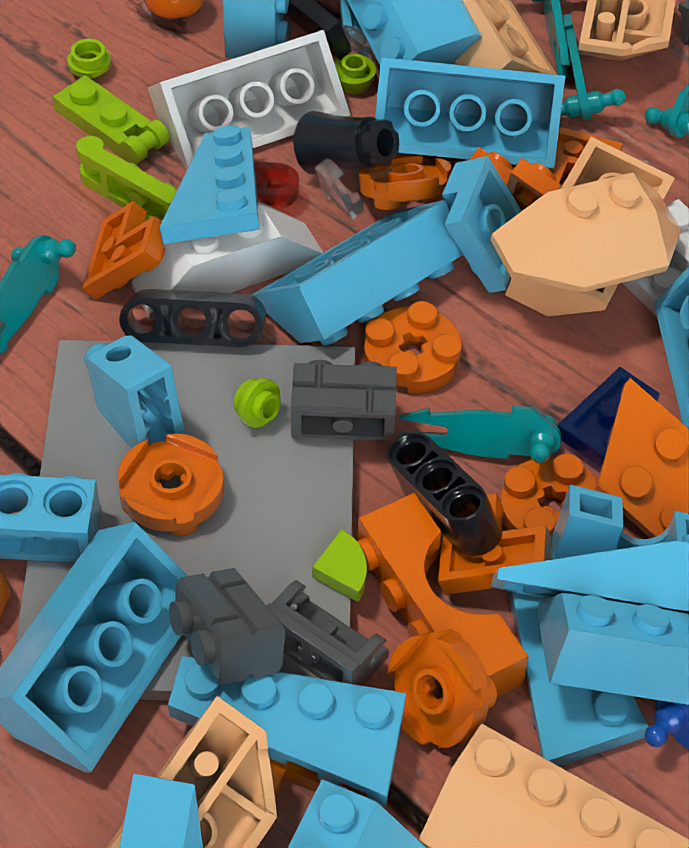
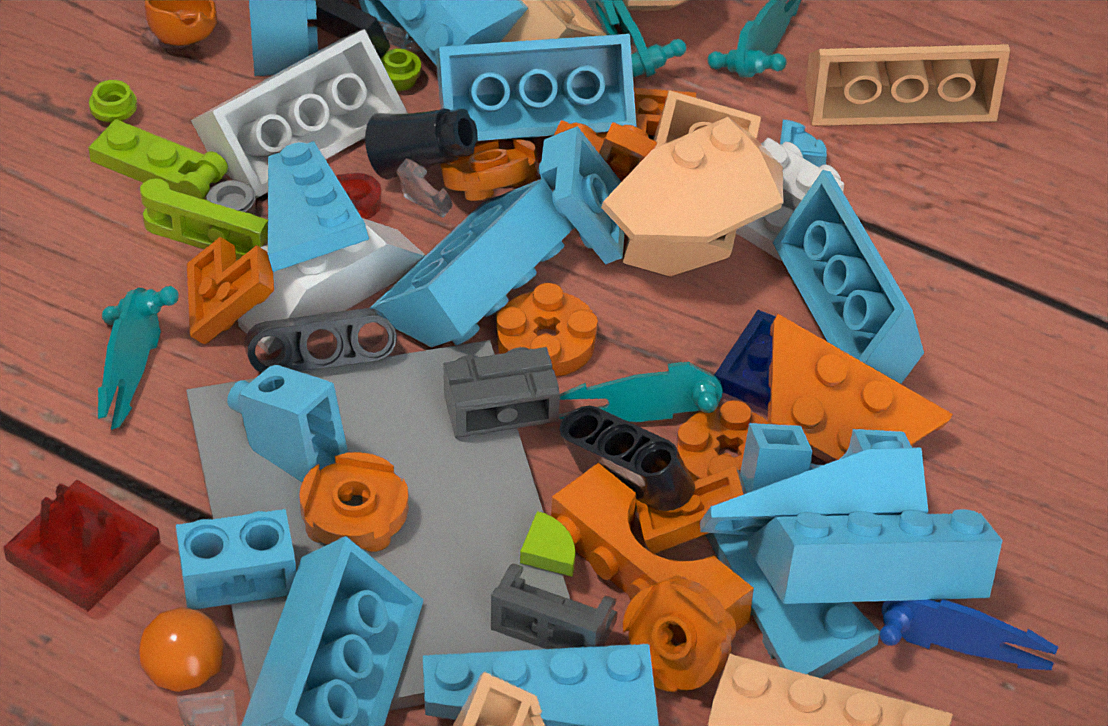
camera: 15 degrees left, 5 degrees down
(165, 166) = (234, 195): none -> light grey tile
(227, 626) = (463, 615): dark grey brick -> none
(257, 401) = (414, 408): lime plate -> none

